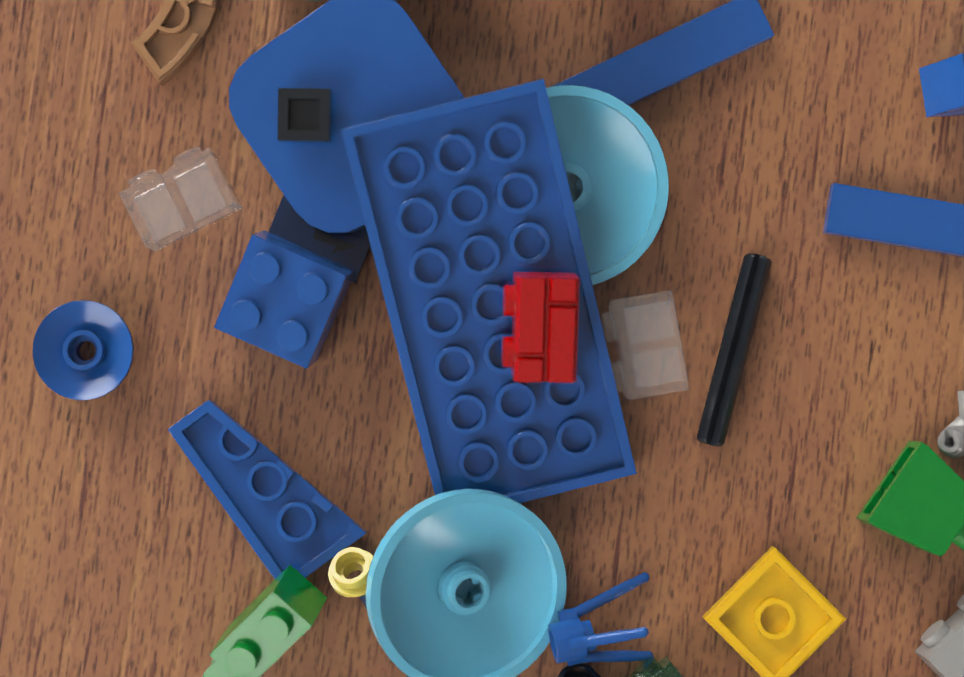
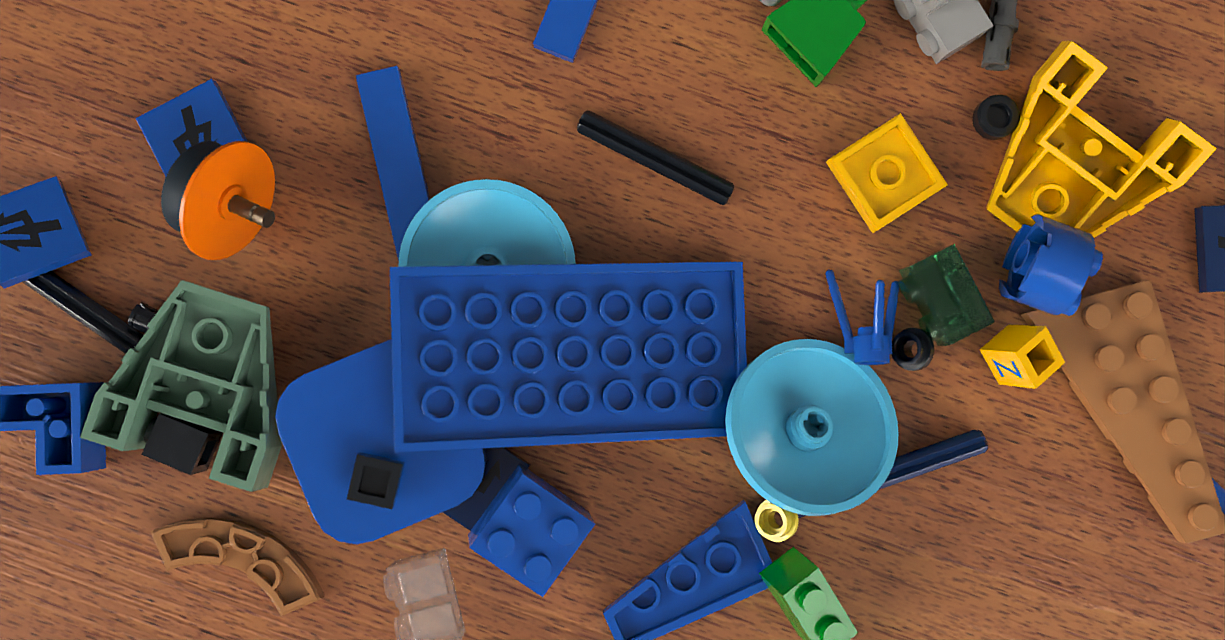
camera: 80 degrees left, 0 degrees up
(543, 327) = (603, 313): red brick -> none
(646, 345) = (636, 229): clear piece -> none

